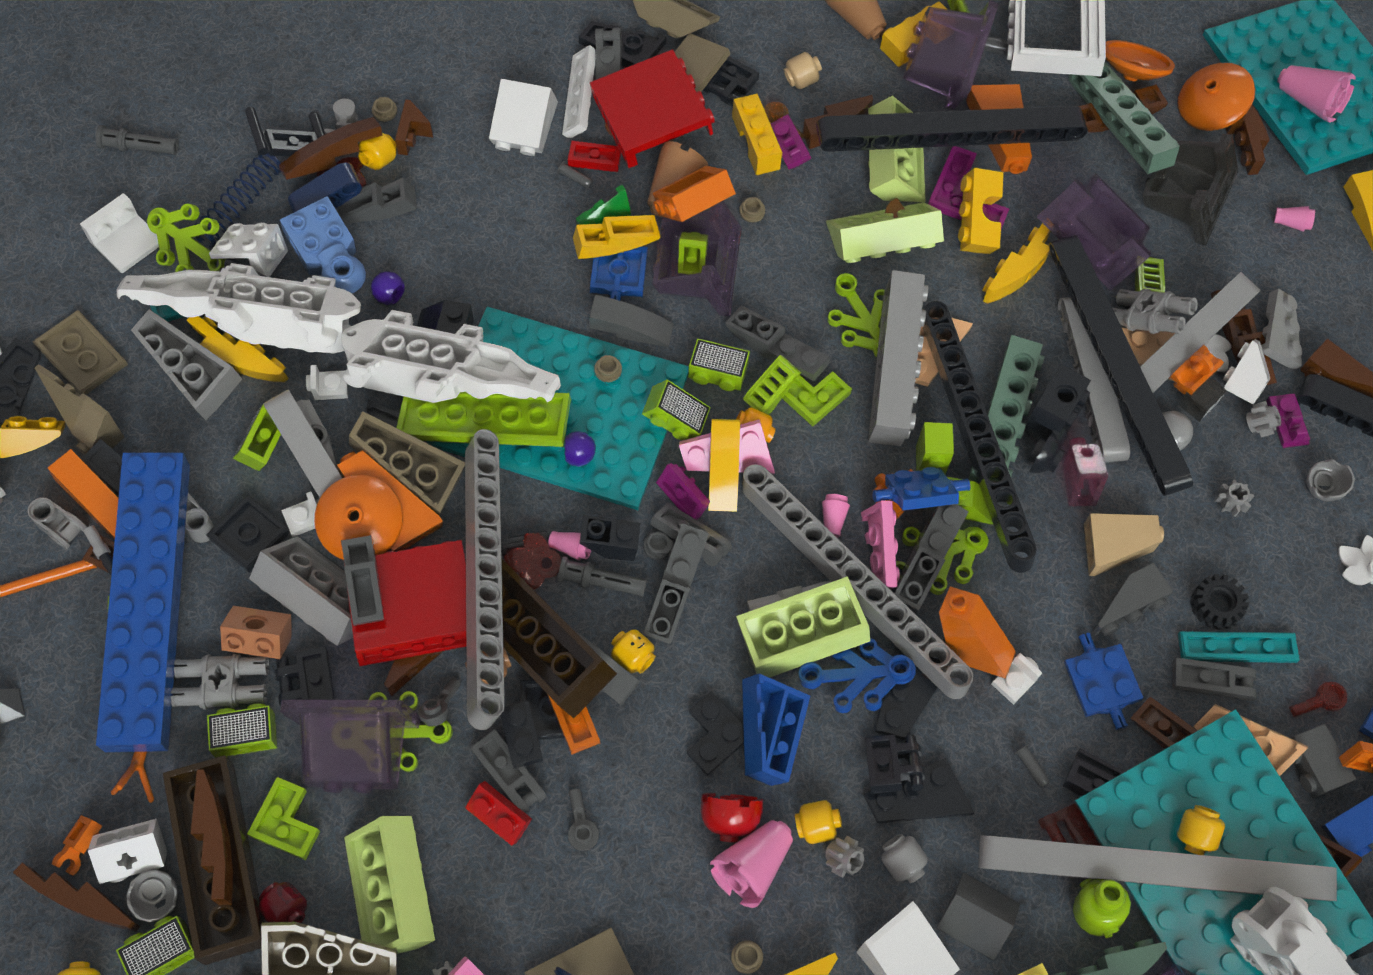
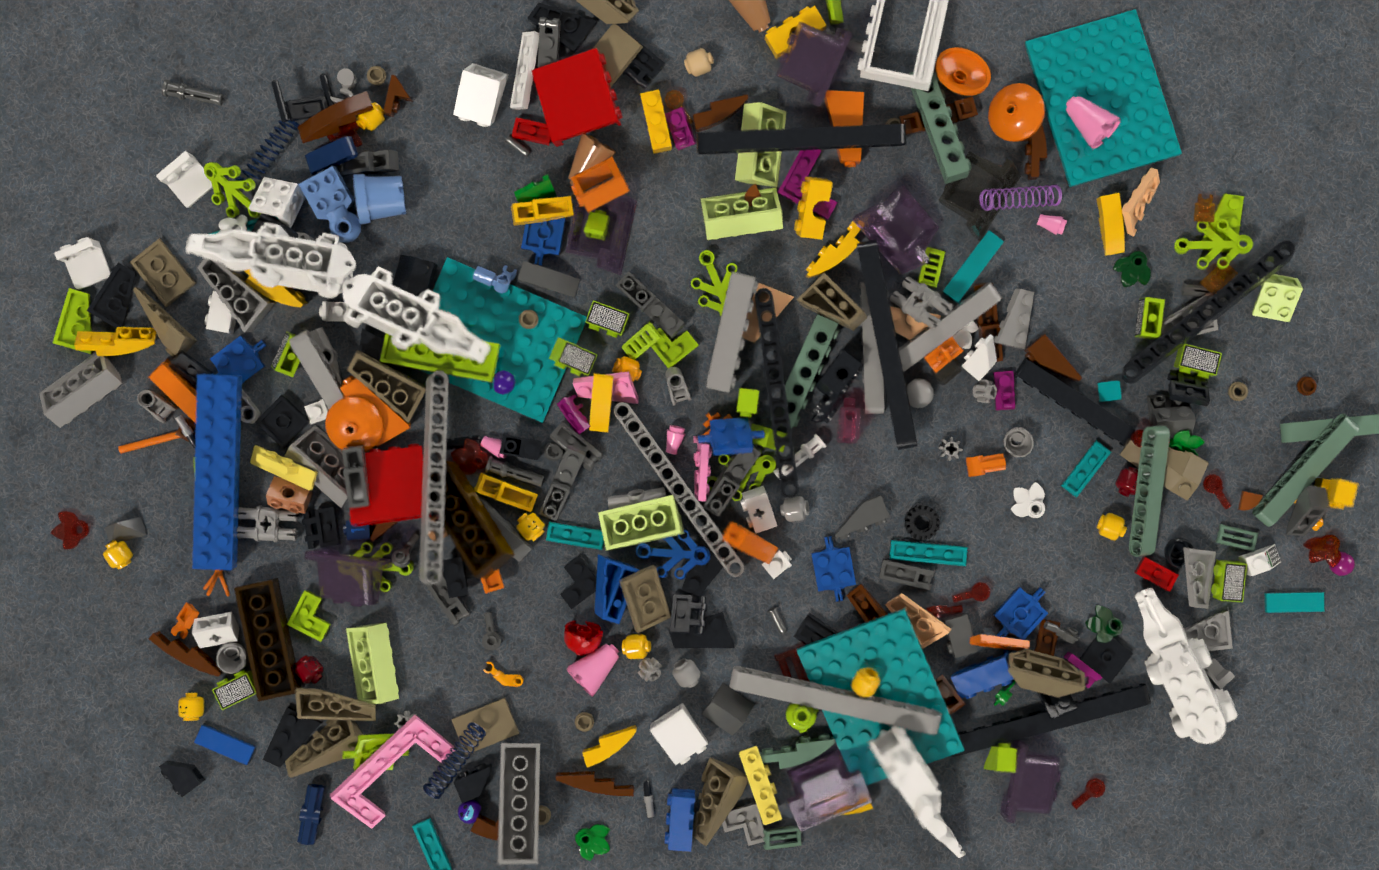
camera: 10 degrees right, 25 degrees up
(161, 398) = (219, 316): none -> white slope
(196, 447) = (239, 359): none -> blue plate
(211, 828) = (264, 626): reddish brown slope -> none
(241, 730) = (282, 559): brick -> none
(247, 589) = (283, 467): none -> light yellow bracket
(363, 679) = (360, 532): none -> dark blue brick
(387, 288) = (376, 237): dark purple piece -> none
(391, 233) = (378, 197): none -> medium blue piece
(498, 813) = (439, 623): red plate -> none
(565, 325) = (489, 278): none -> medium blue bar
(591, 606) = (505, 492): none -> yellow slope
(609, 898) = (512, 680): none -> light orange arm
(702, 663) = (575, 535): none -> teal tile
(752, 210) = (646, 187): dark tan plate -> none
(824, 741) = (645, 598): none -> dark tan tile
(831, 444) = (677, 388): none -> light grey piece
(980, 582) = (758, 499): none -> white brick
(1028, 596) = (795, 509): none -> light grey head
(1031, 317) = (832, 303): none -> dark tan wedge
(1033, 518) = (807, 451): none -> white pin
(1119, 539) = (864, 473): tan slope -> none
(1208, 268) = (973, 266): none -> teal tile
(1219, 182) = (1022, 189): none -> medium lavender piece
(1284, 727) = (937, 610): none -> clear red plate
(1286, 517) = (983, 464): none -> orange piece

